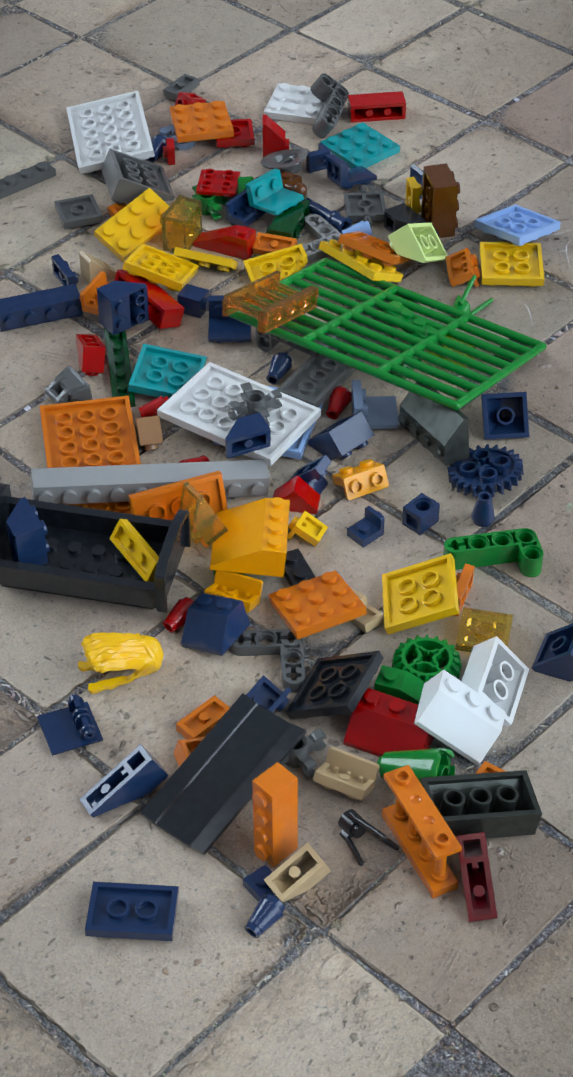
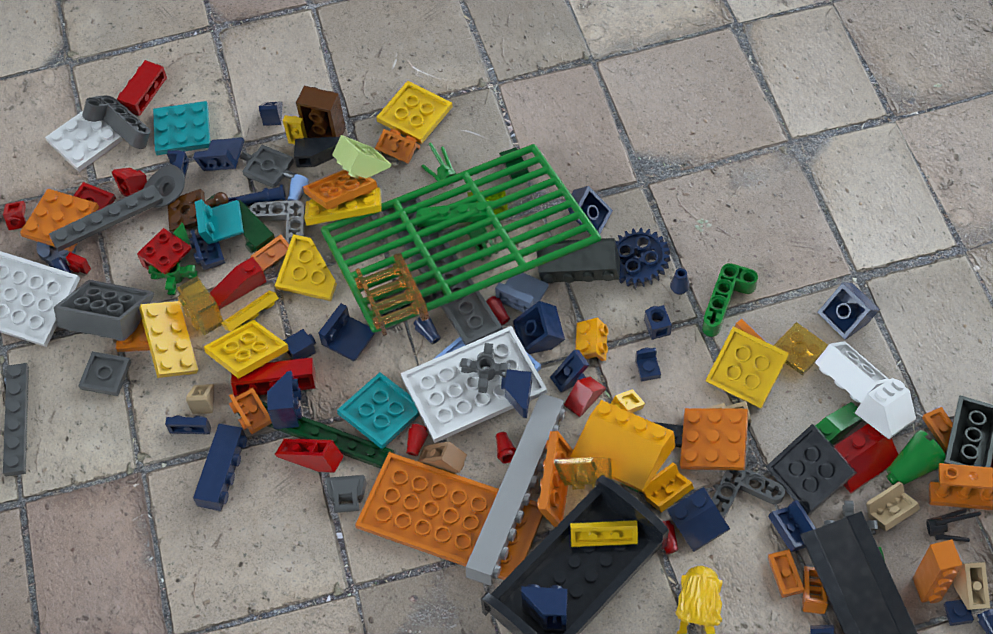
camera: 55 degrees left, 15 degrees up
(222, 138) = (105, 218): none -> dark grey plate
(427, 657) = (820, 393): green gear -> none
(517, 225) = (376, 82): light blue plate -> none

